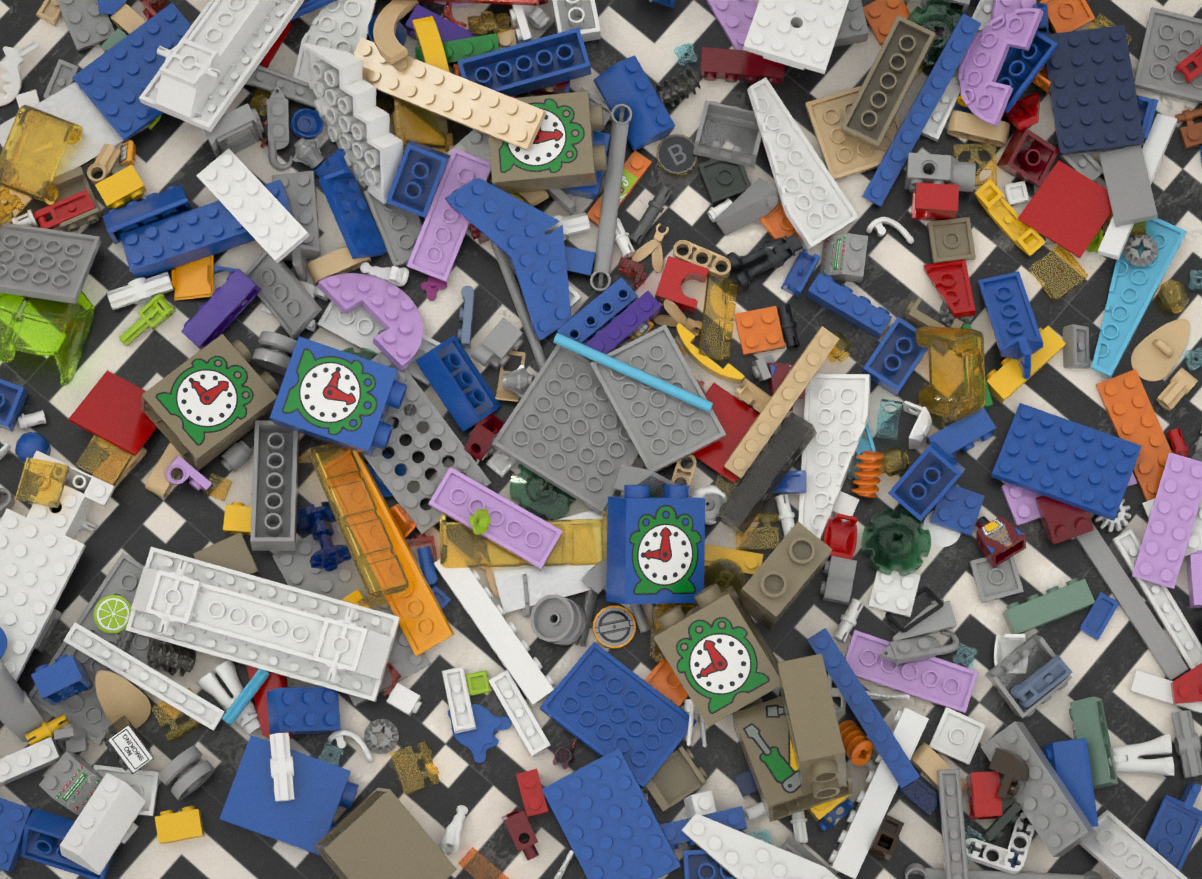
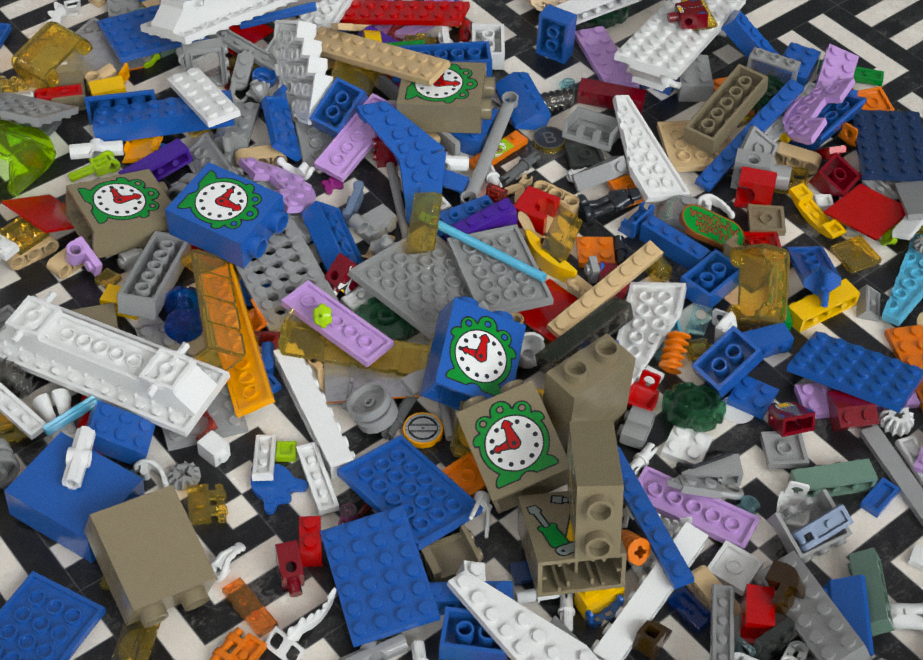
camera: 10 degrees right, 30 degrees down
(557, 354) = (424, 222): none -> clear yellow windscreen
(890, 276) = (709, 226): none -> tile
(932, 135) = (758, 141): none -> light grey plate

